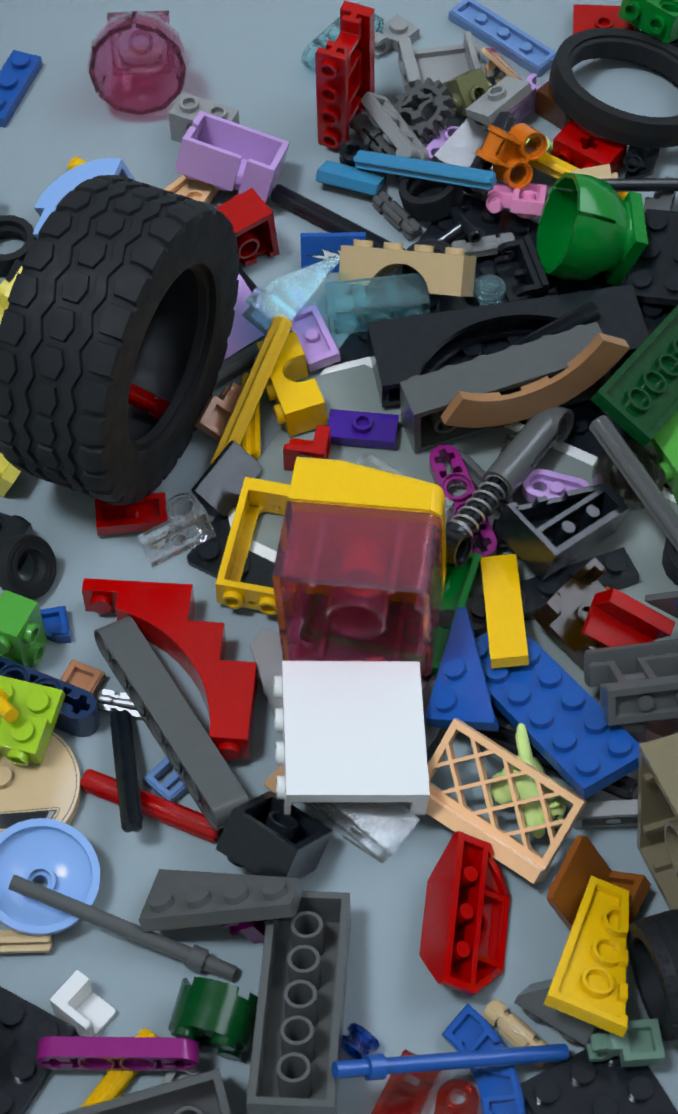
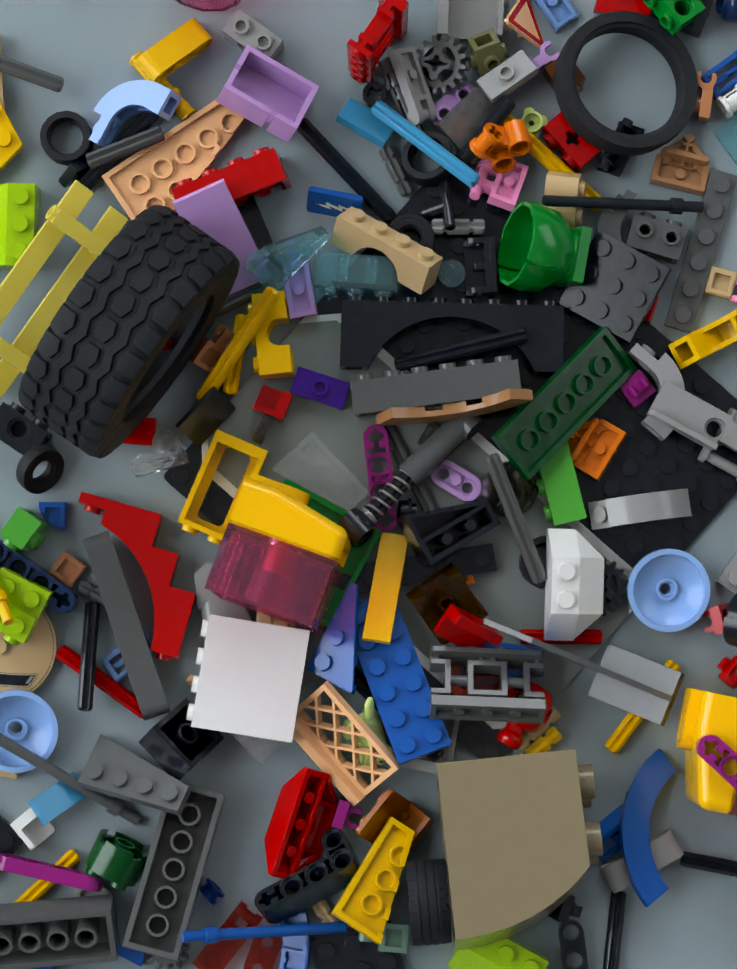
camera: 15 degrees right, 30 degrees up
(111, 959) = (55, 801): none -> dark azure tile
(124, 139) = (174, 51): none -> yellow beam
(500, 987) = (312, 882): none -> black beam
(521, 902) = (342, 814): none -> magenta tile

